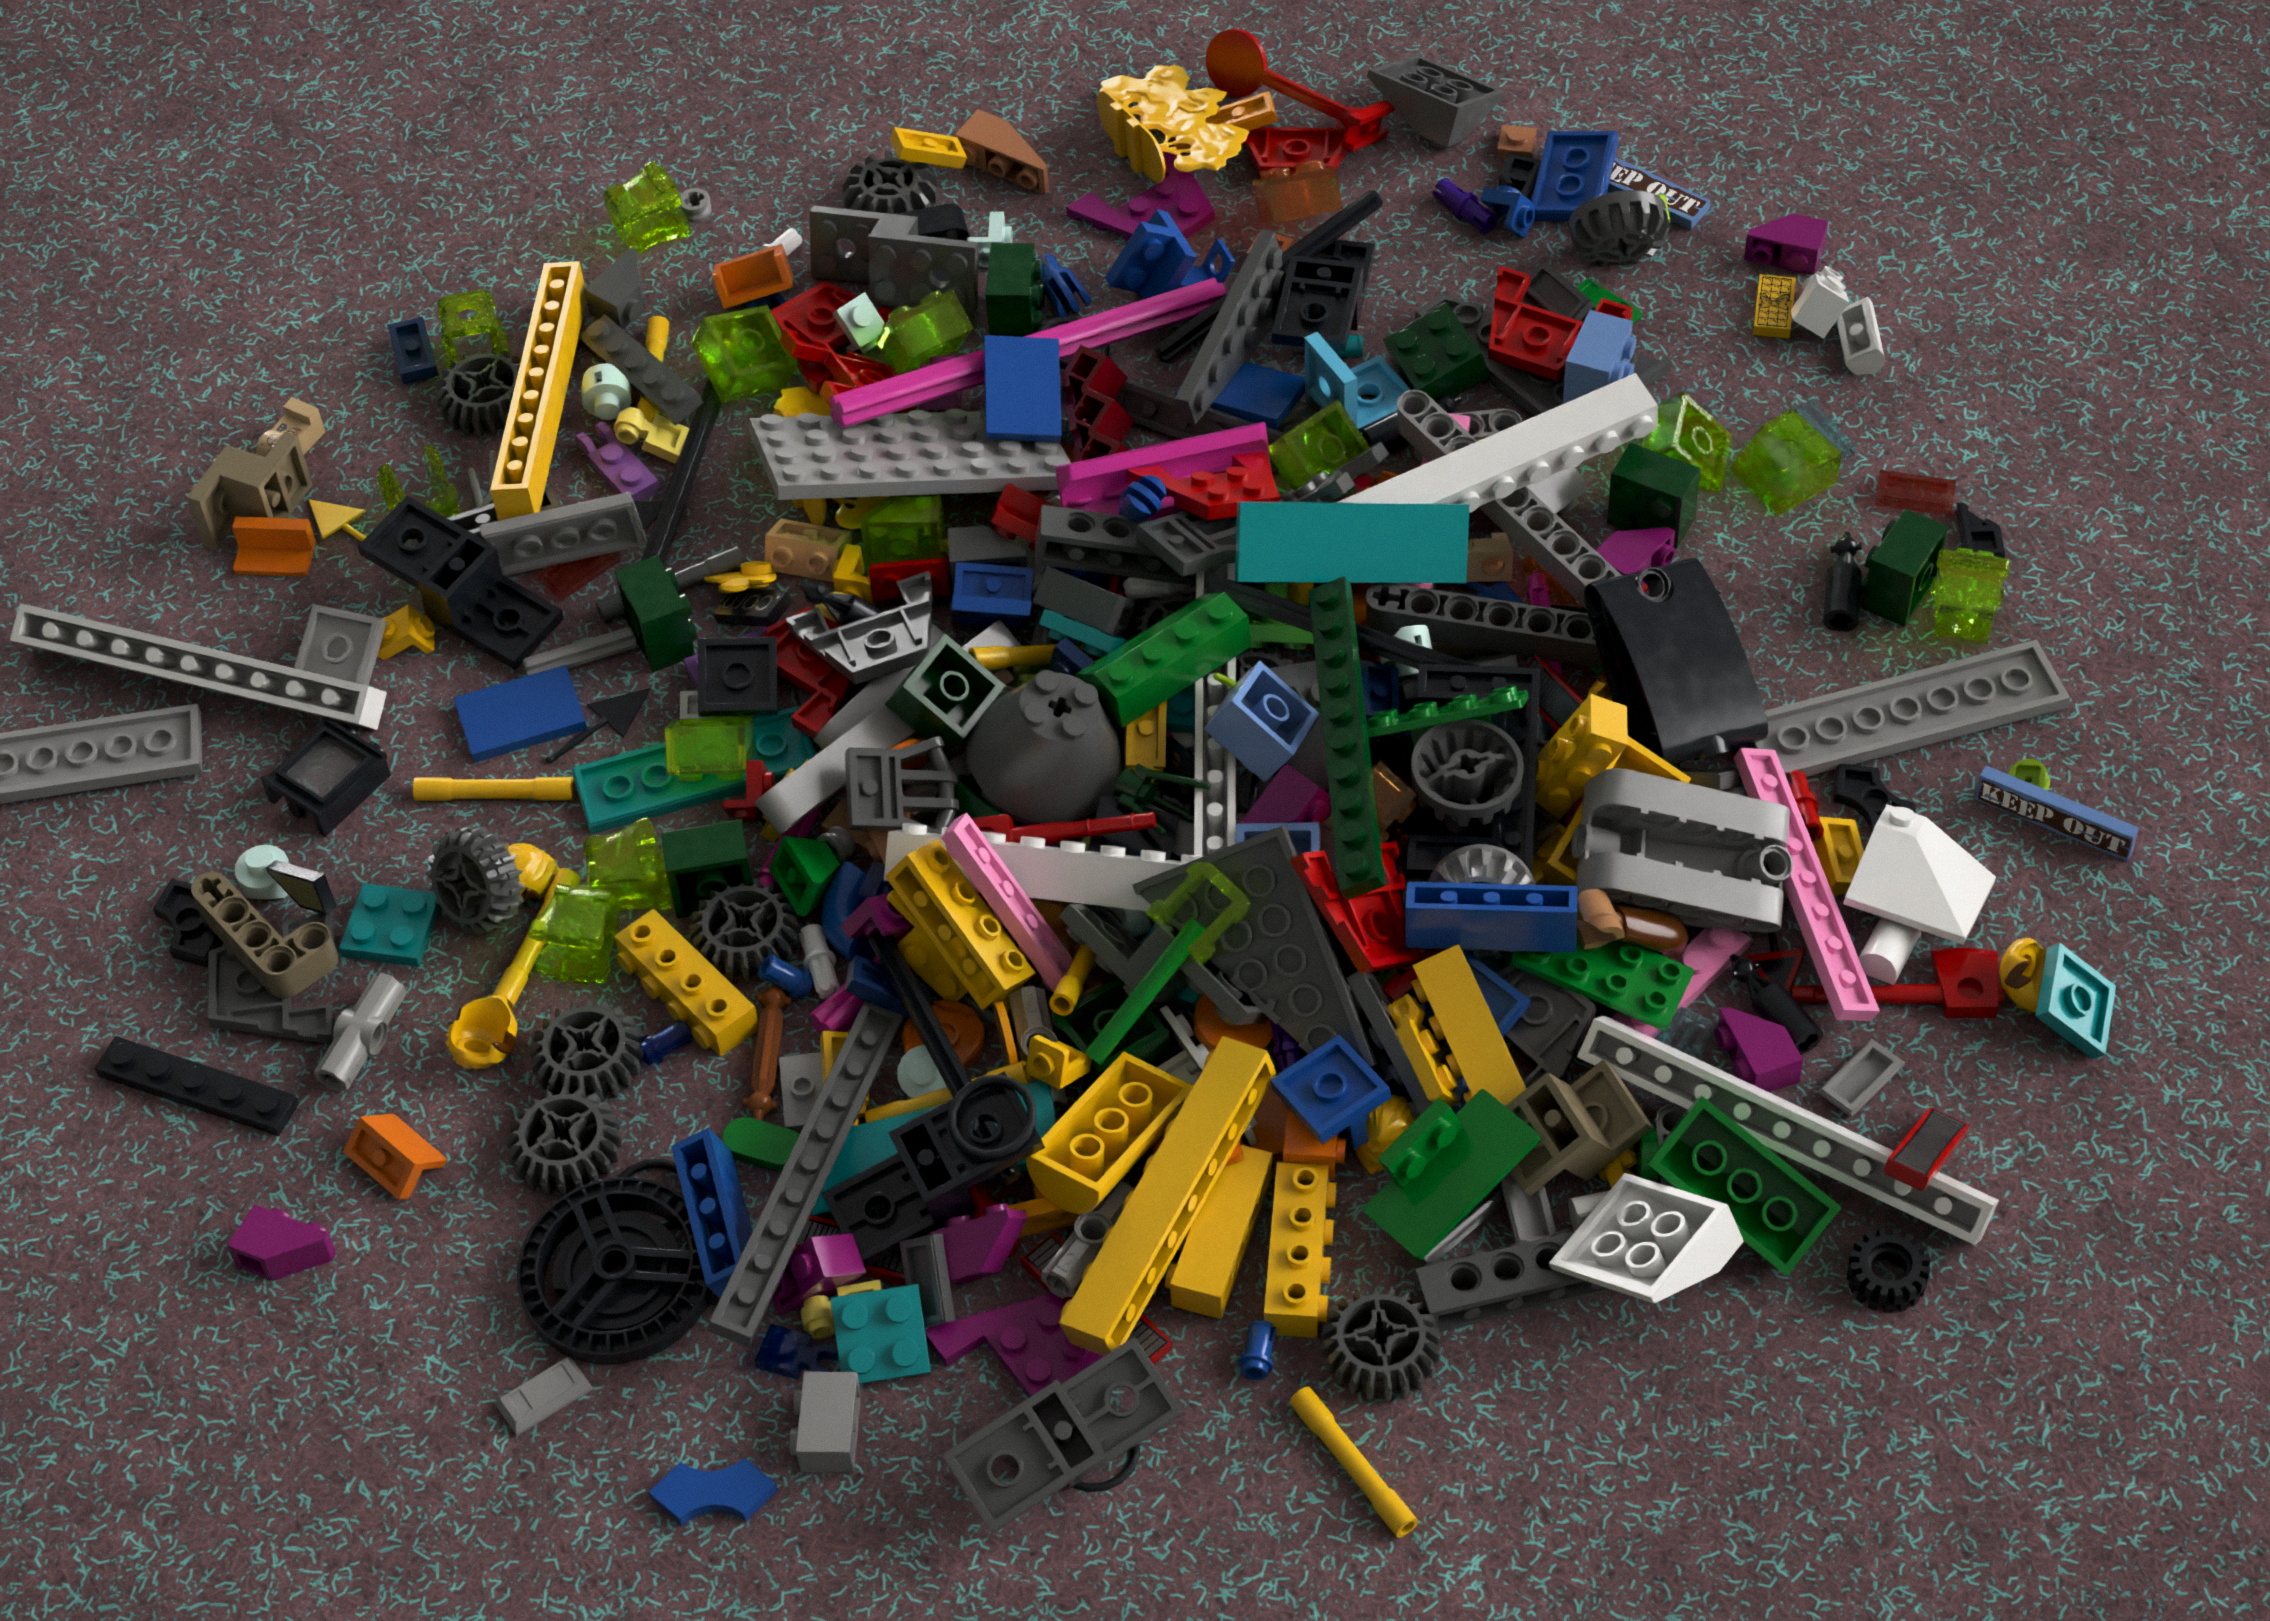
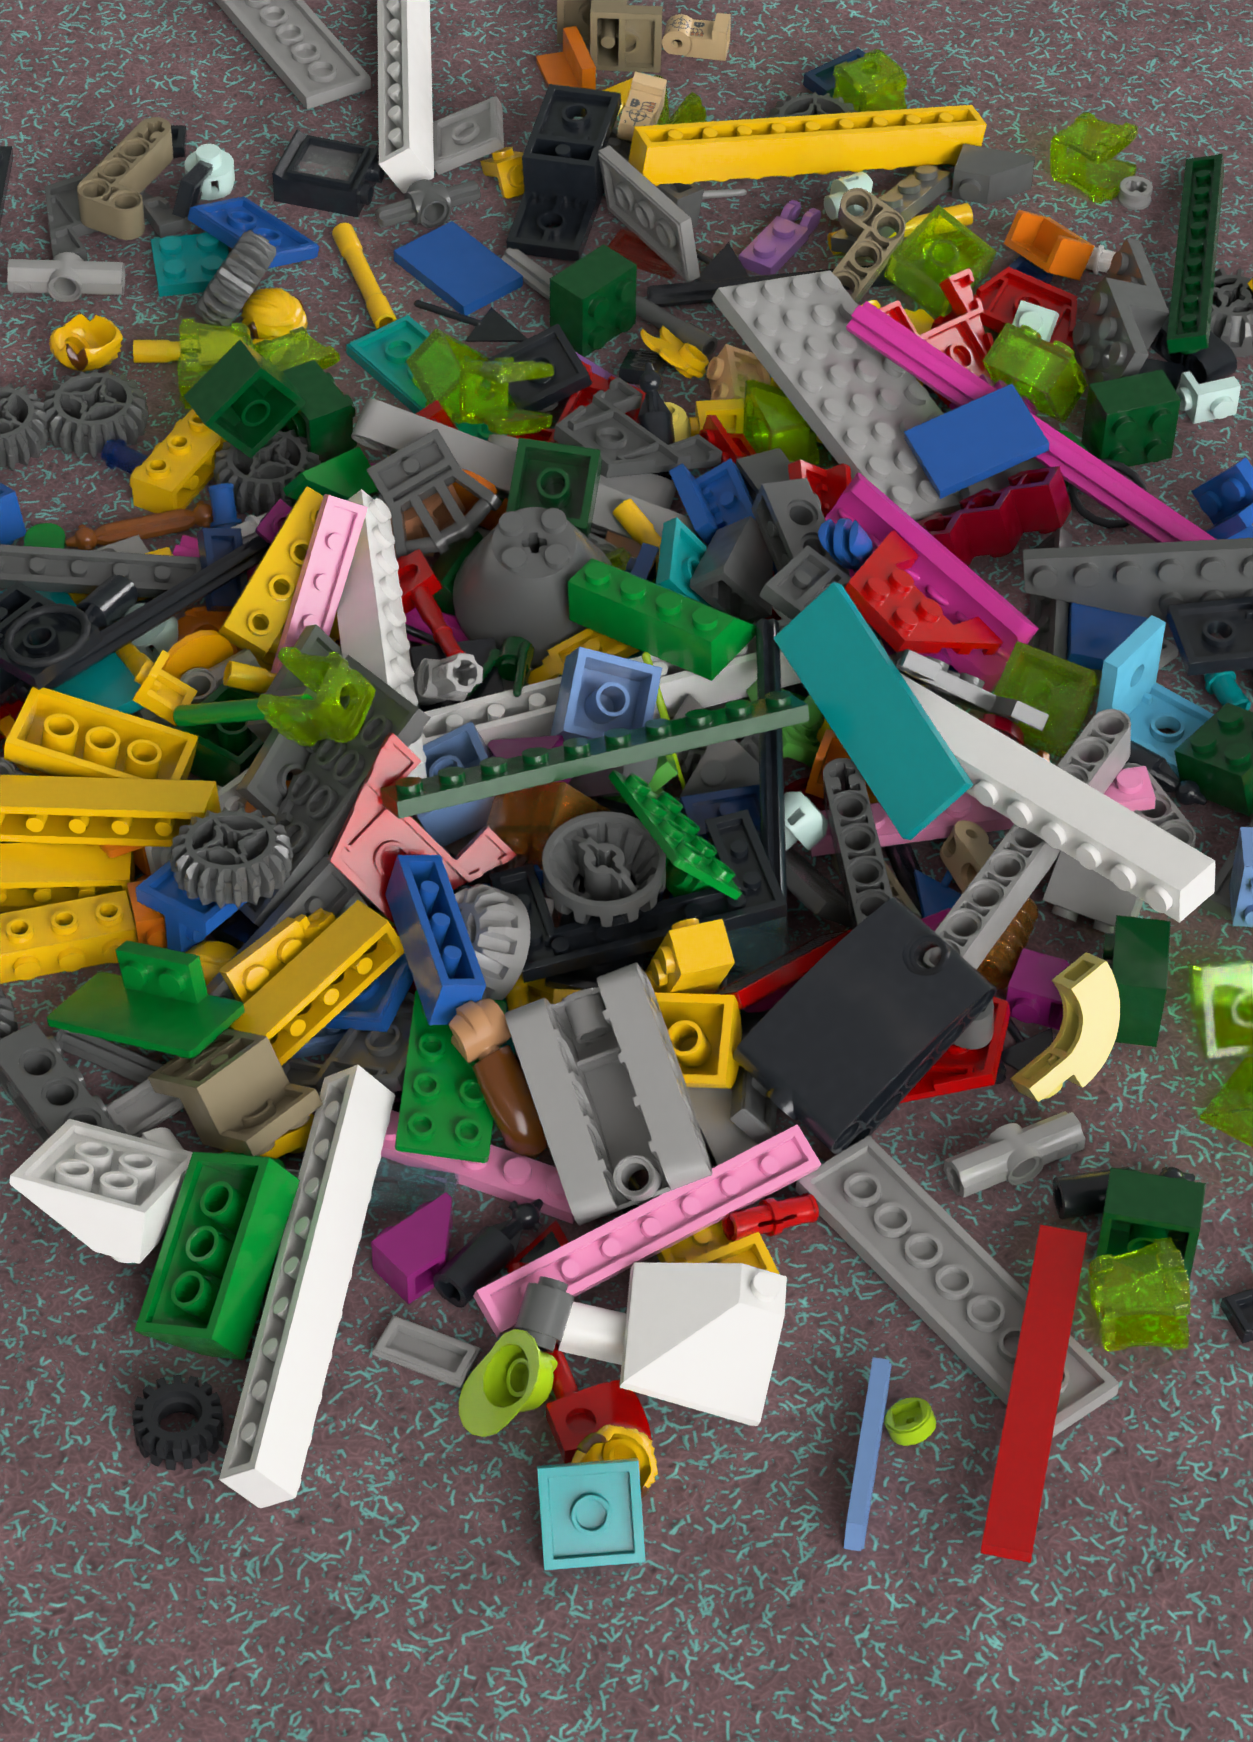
camera: 65 degrees right, 5 degrees down
(379, 858) = (232, 217): none -> blue tile
(418, 709) = (427, 203): none -> dark grey axle
(429, 488) = (643, 104): none -> tan leg
(660, 434) = (817, 246): light yellow plate -> none
(704, 894) = (245, 399): none -> dark green brick
(726, 400) = (868, 240): none -> dark tan beam
(796, 715) = (494, 408): none -> clear neon green piece
(828, 180) = (1196, 255): none -> dark green plate
(904, 1088) = (109, 601): none -> black wheel
(1062, 284) = (1177, 462): blue arm -> none
(1190, 817) = (446, 679): none -> light grey piece
(1354, 1038) = (231, 857): none -> dark grey gear
(1694, 534) = (1086, 1030): none -> light yellow arch
(1787, 634) = (1014, 1154): none -> light grey piece
(1864, 792) = (826, 1274): black tile -> none
(1883, 970) = (545, 1312): none -> dark grey brick
(1925, 1149) = (316, 1399): tile -> none
(1928, 1026) = (507, 1381): none -> lime piece
(2036, 688) = (1034, 1395): none -> red tile

